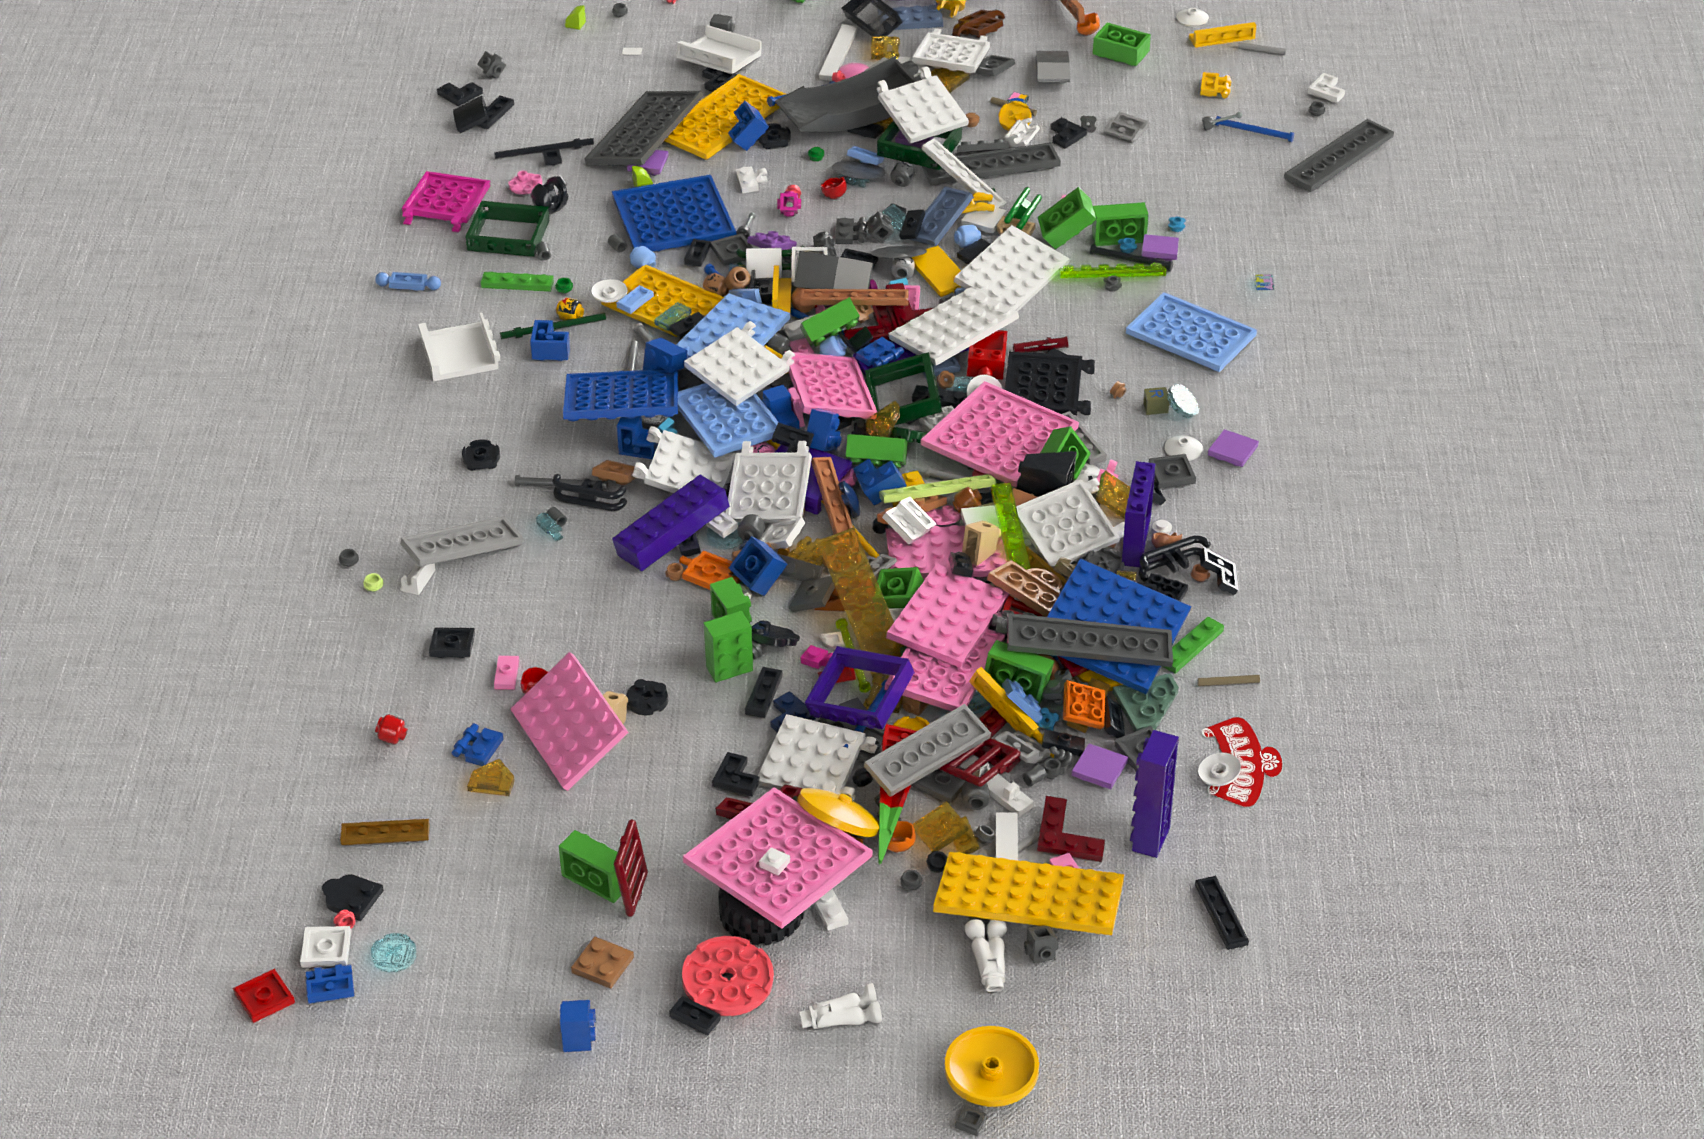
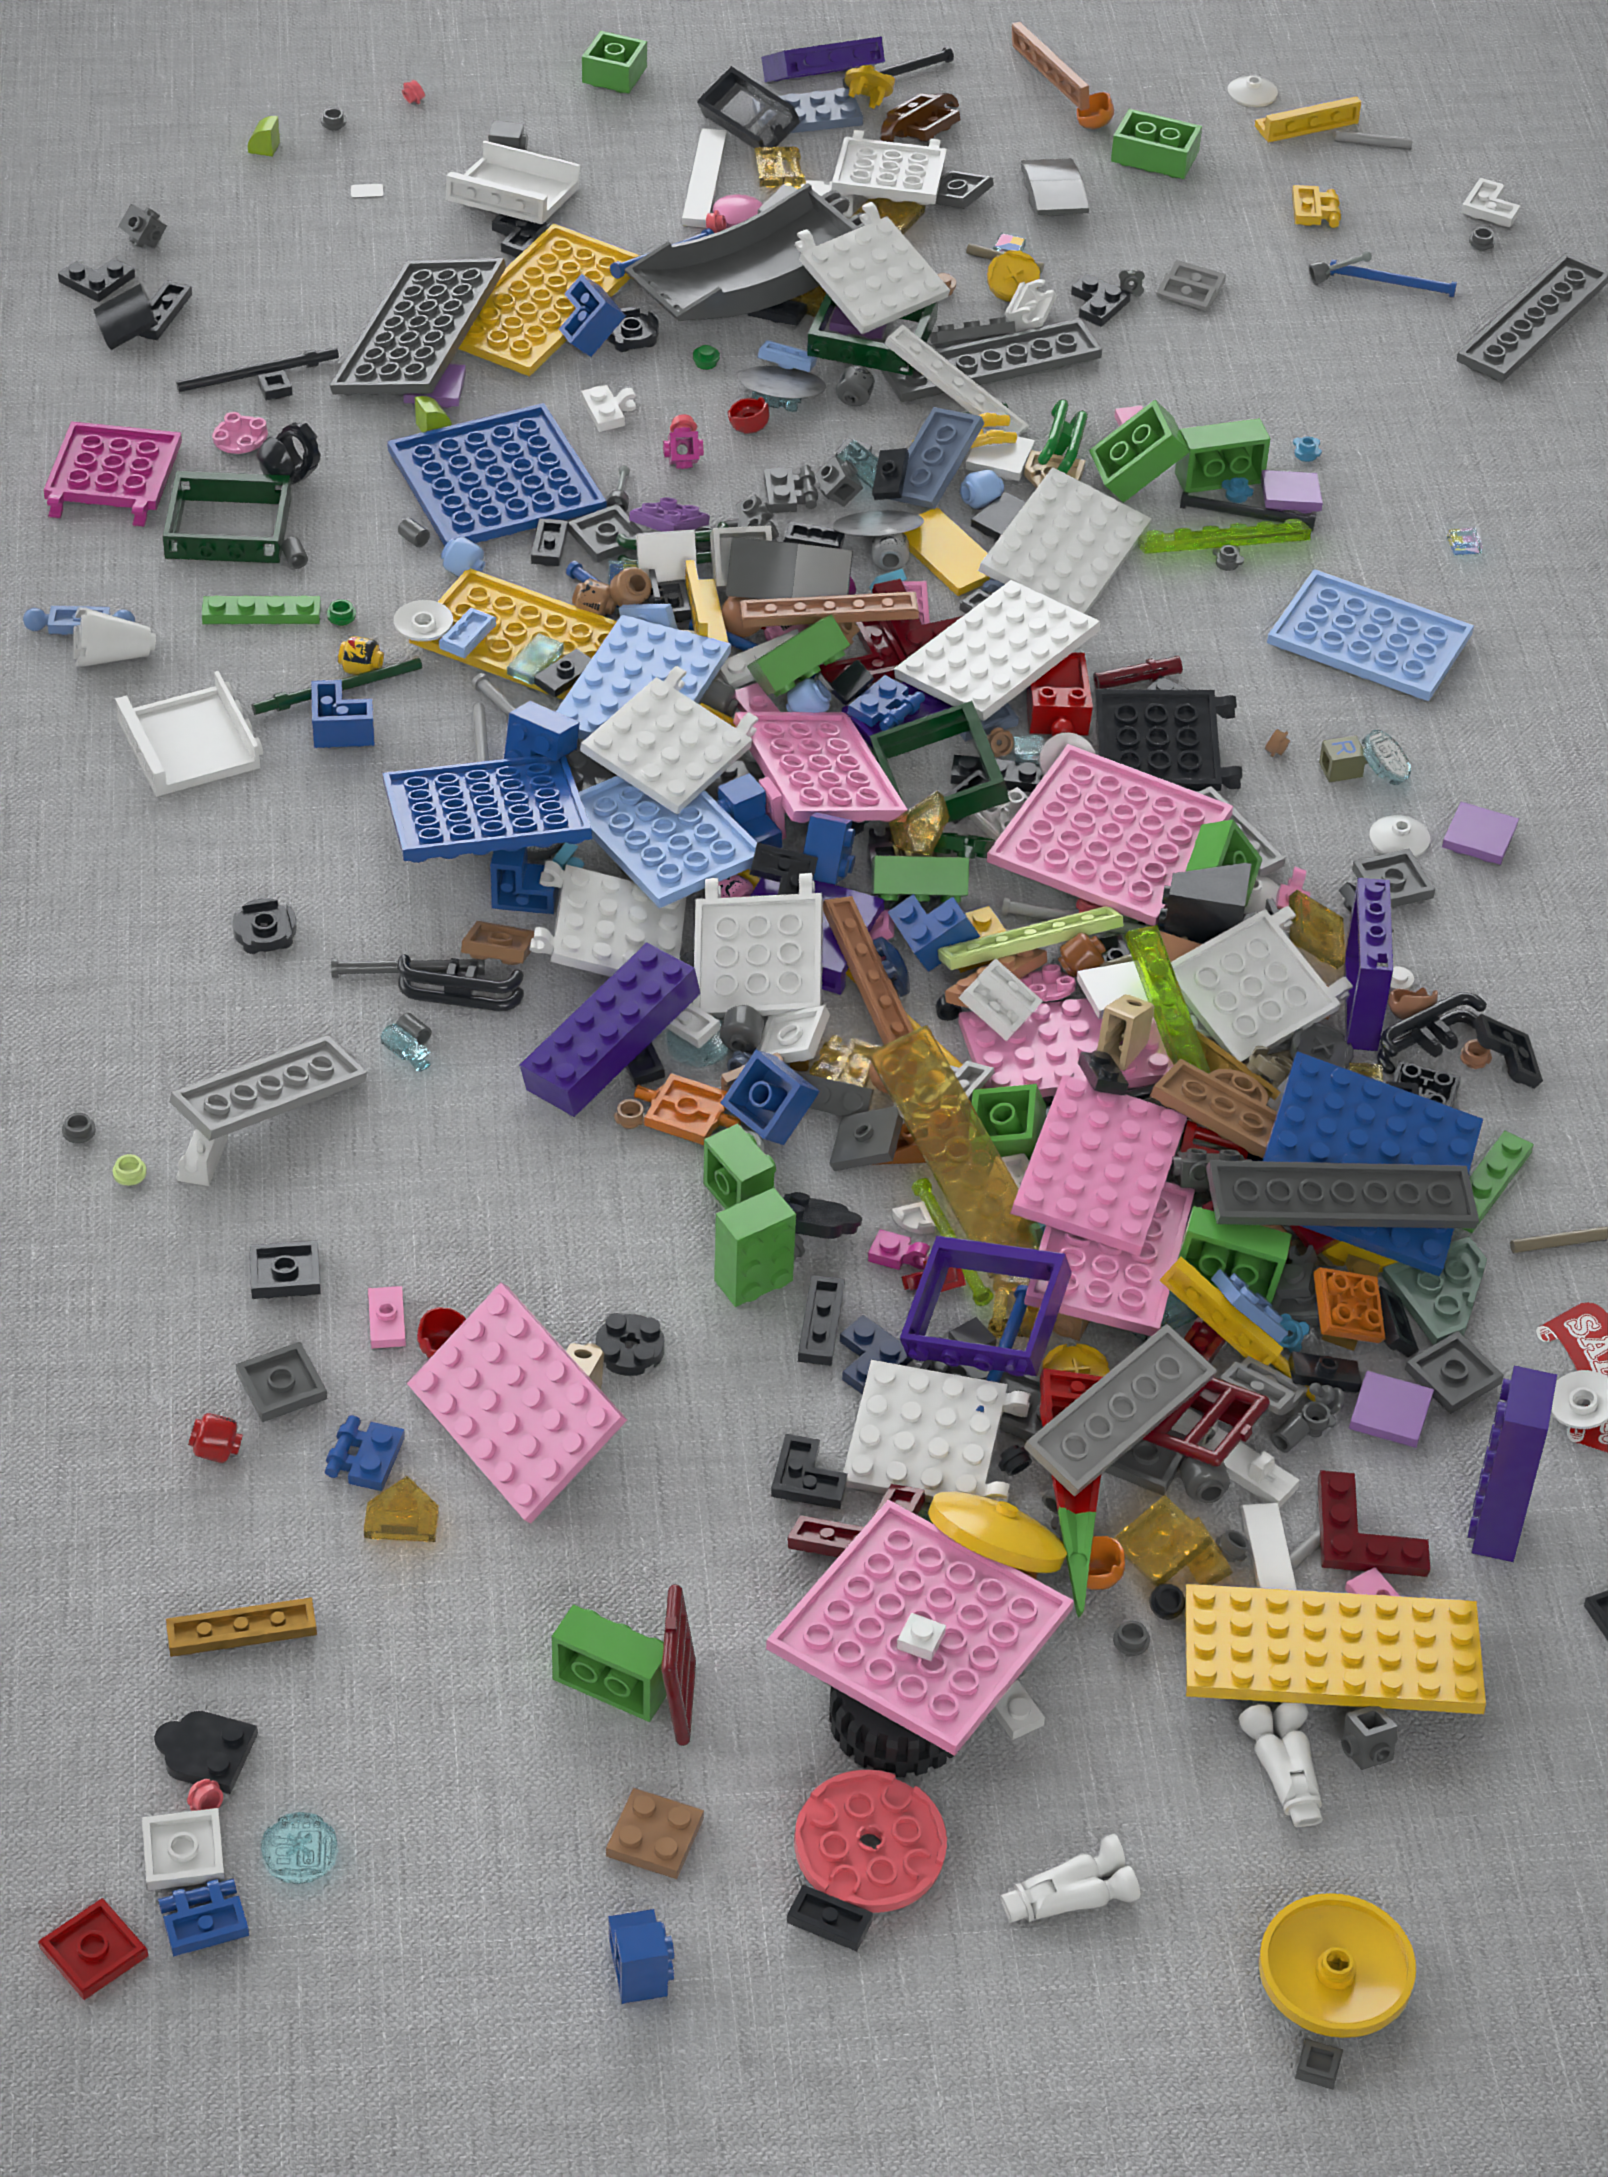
camera: 10 degrees left, 5 degrees up
(422, 291) = (109, 639): none -> white cone
(436, 702) = (281, 1381): none -> dark grey plate

